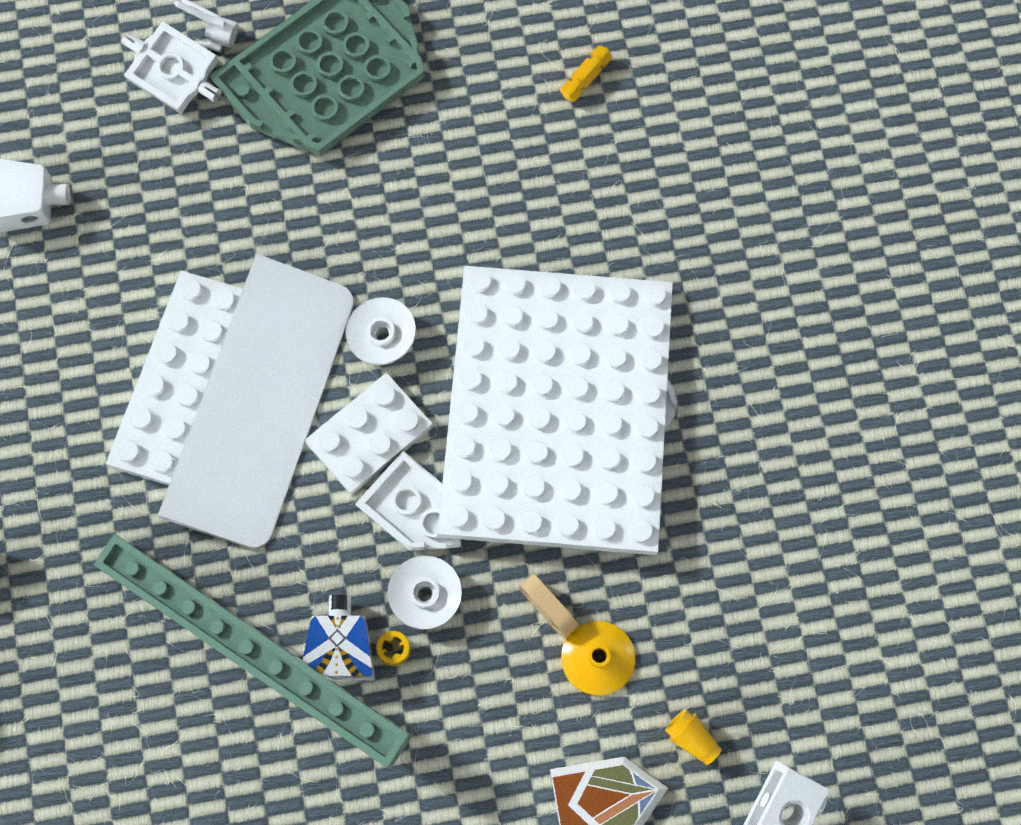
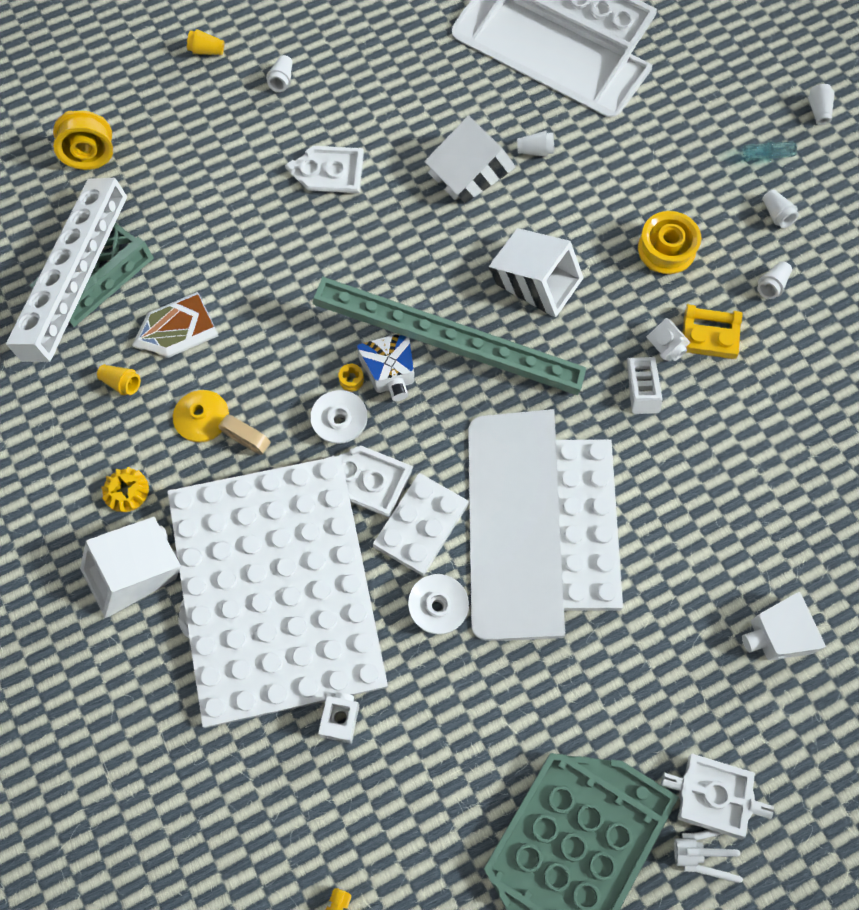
camera: 165 degrees right, 5 degrees down
(19, 521) = (644, 401): none -> white slope
(97, 725) = (537, 270): none -> white slope
(525, 235) = (329, 727): none -> white brick
(700, 595) = (137, 492): none -> yellow gear
(719, 477) = (128, 564): none -> white slope

